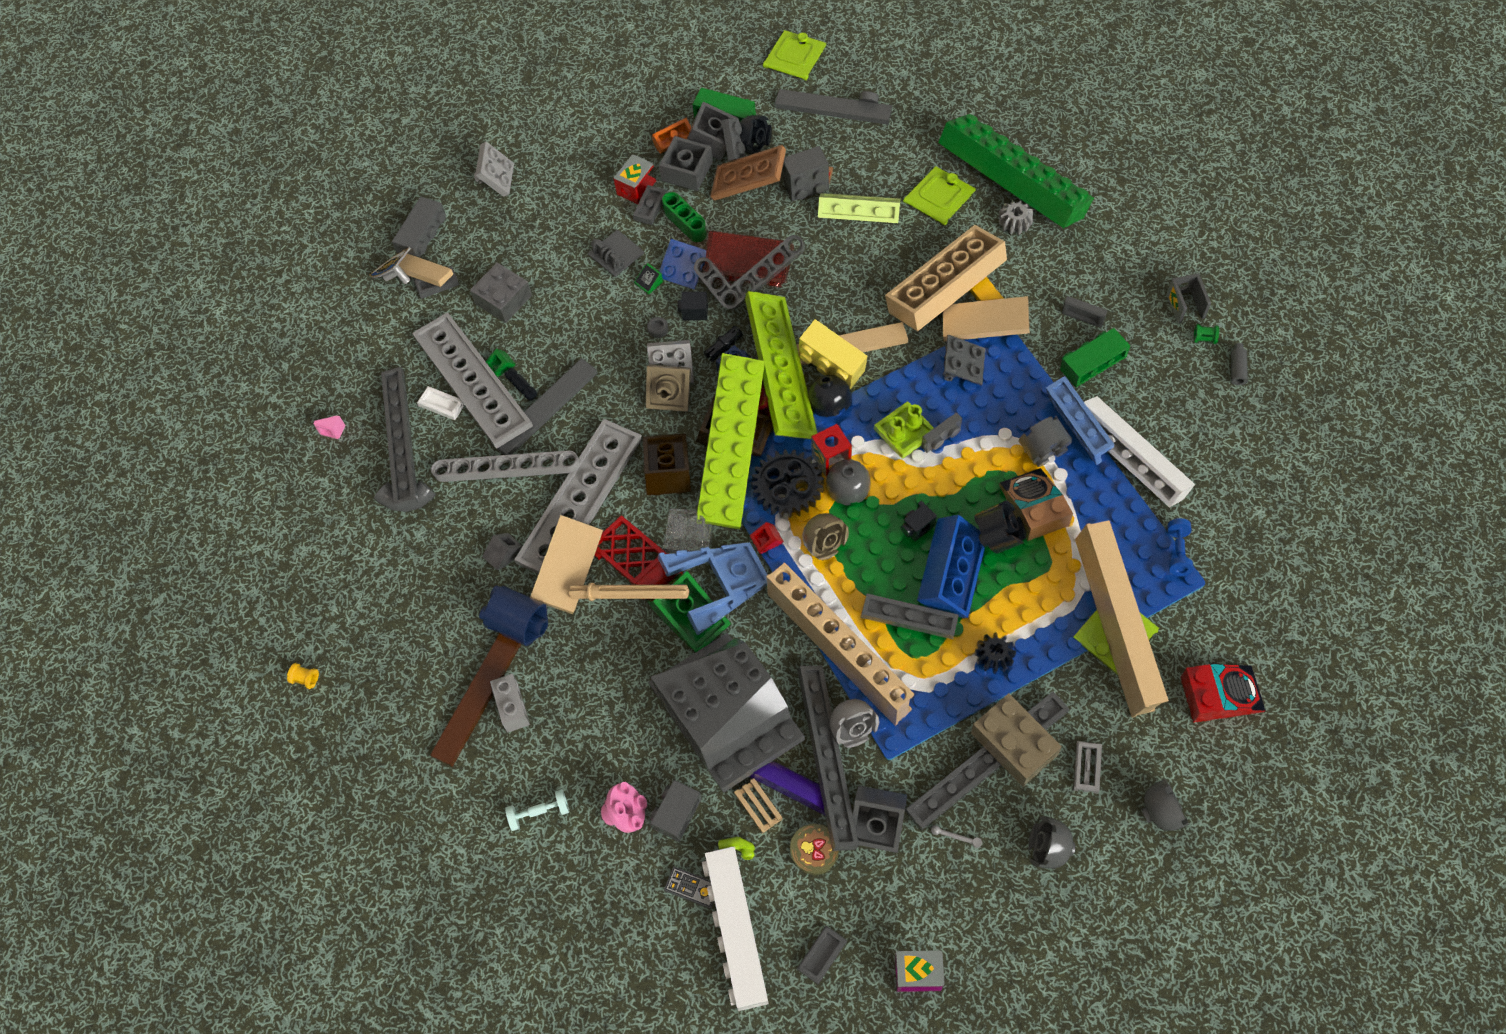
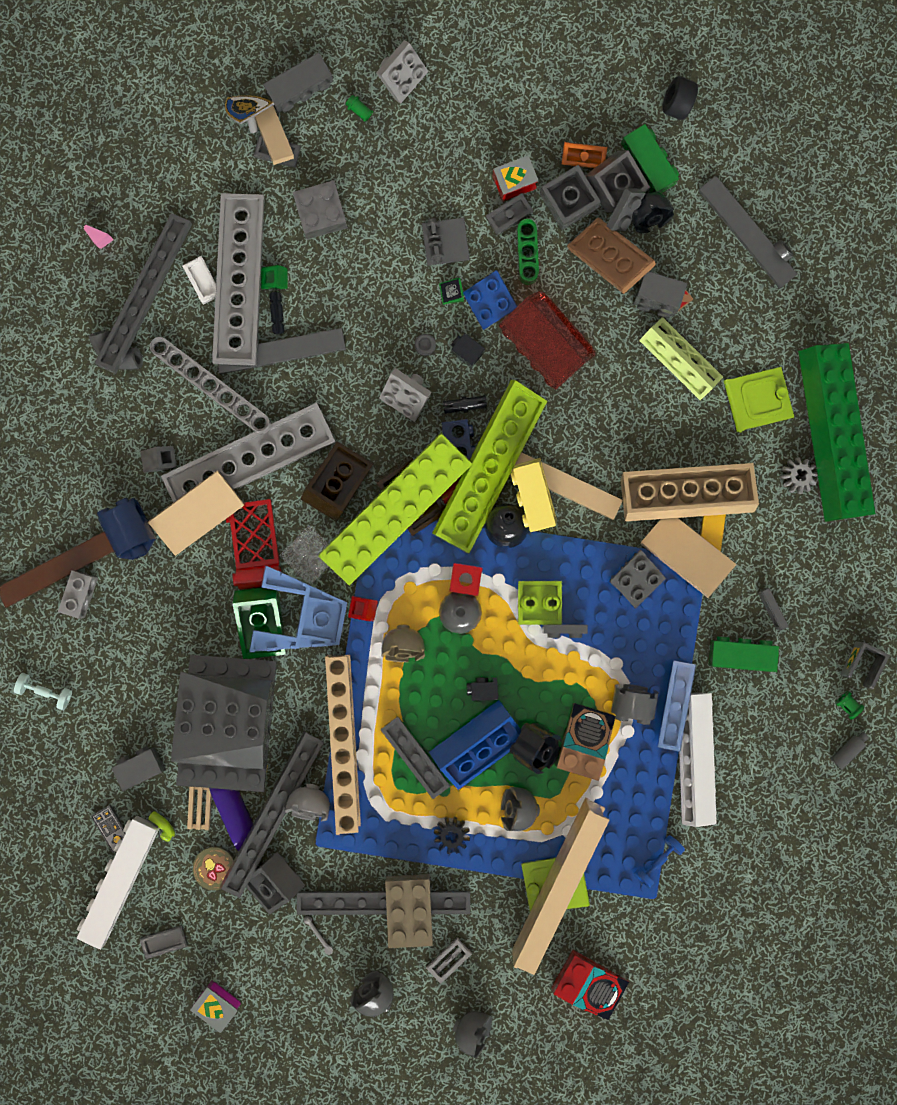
camera: 30 degrees right, 25 degrees up
(479, 215) = (358, 108): none -> green pin
(594, 591) = (201, 560): tan axle -> none
(624, 808) = (102, 741): bright pink plate -> none
(668, 388) = (385, 416): dark tan plate -> none
(712, 61) = (680, 98): none -> black tyre
(751, 275) = (530, 366): dark grey beam -> none
(792, 57) = (758, 146): lime container -> none
(794, 499) = (419, 558): black gear -> none
(1029, 588) = (519, 809): none -> dark grey cylinder

